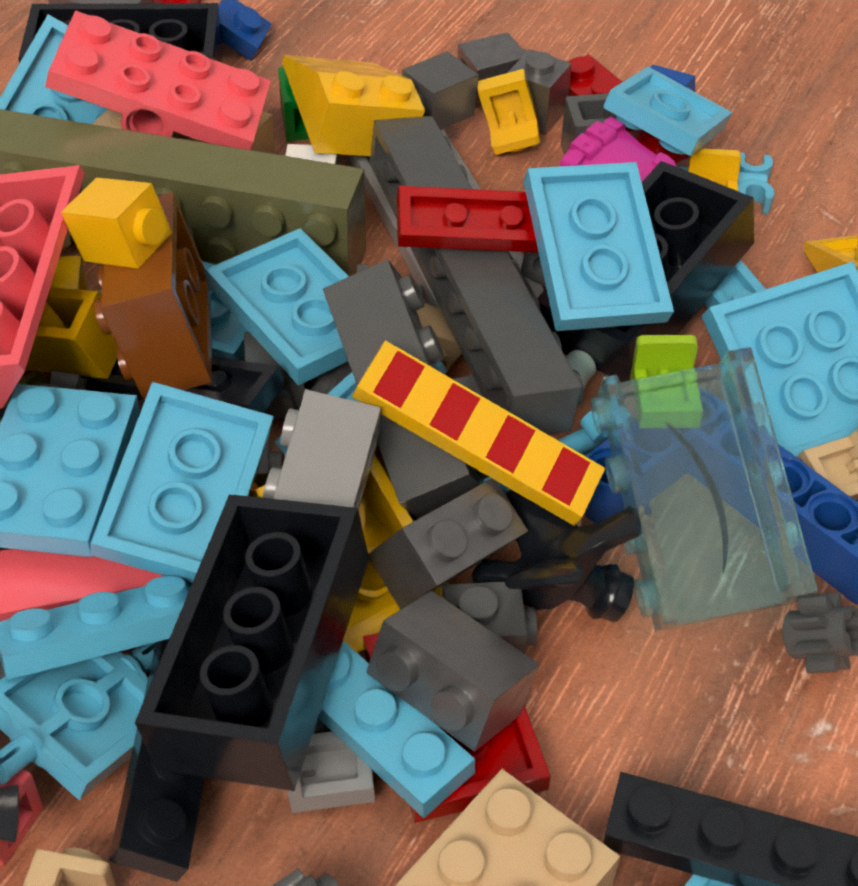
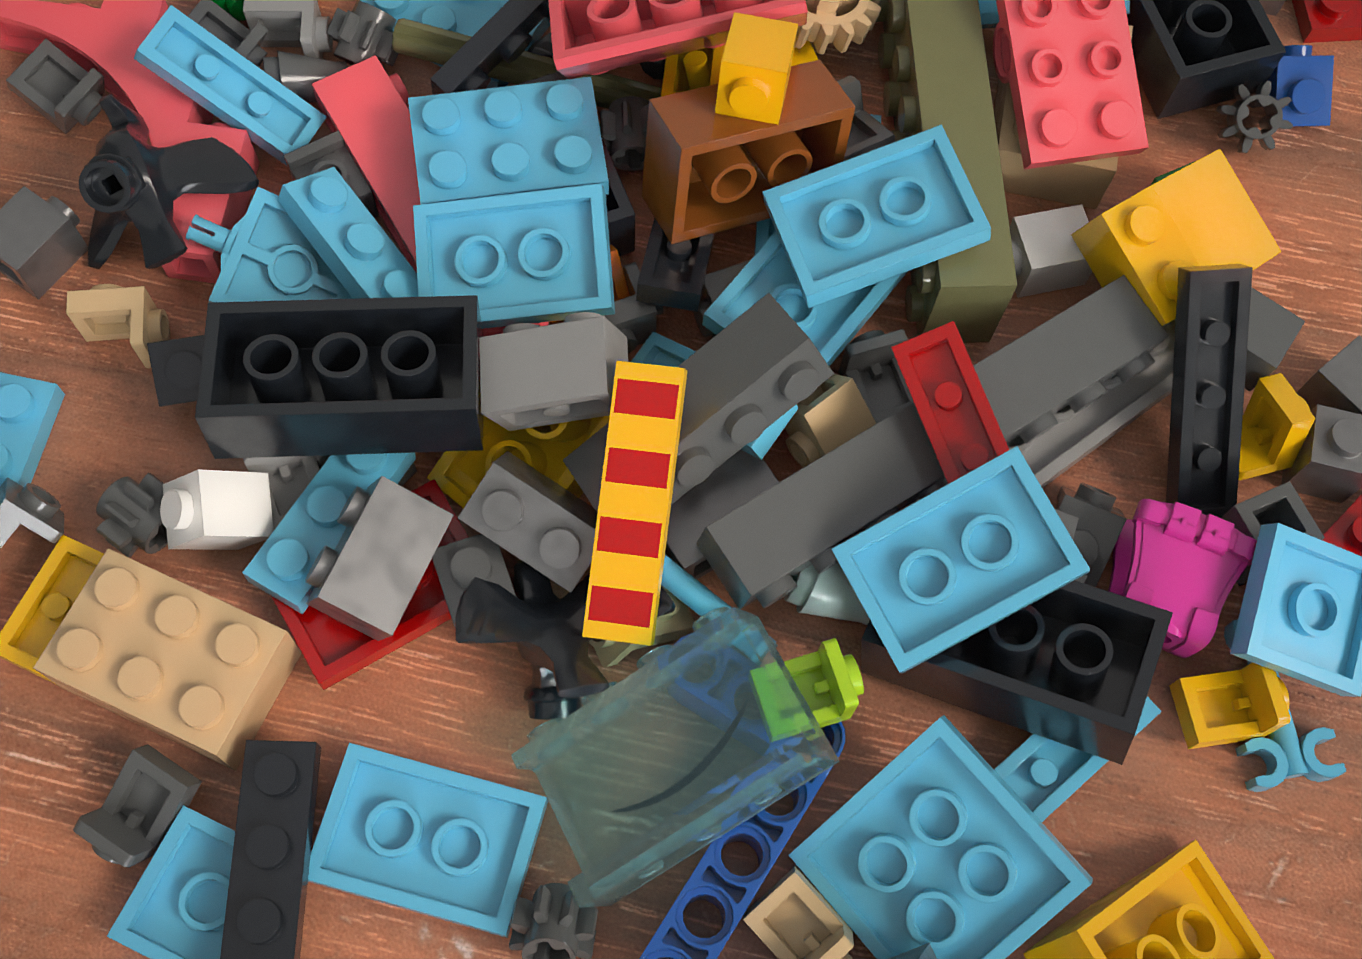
camera: 70 degrees right, 20 degrees up
(251, 48) = (1269, 124): none -> dark grey gear
(268, 225) = (876, 216): none -> medium azure plate
(339, 826) = (217, 510): none -> white brick
(475, 108) = (1208, 386): none -> black plate
(722, 716) = (427, 839): none -> medium azure plate

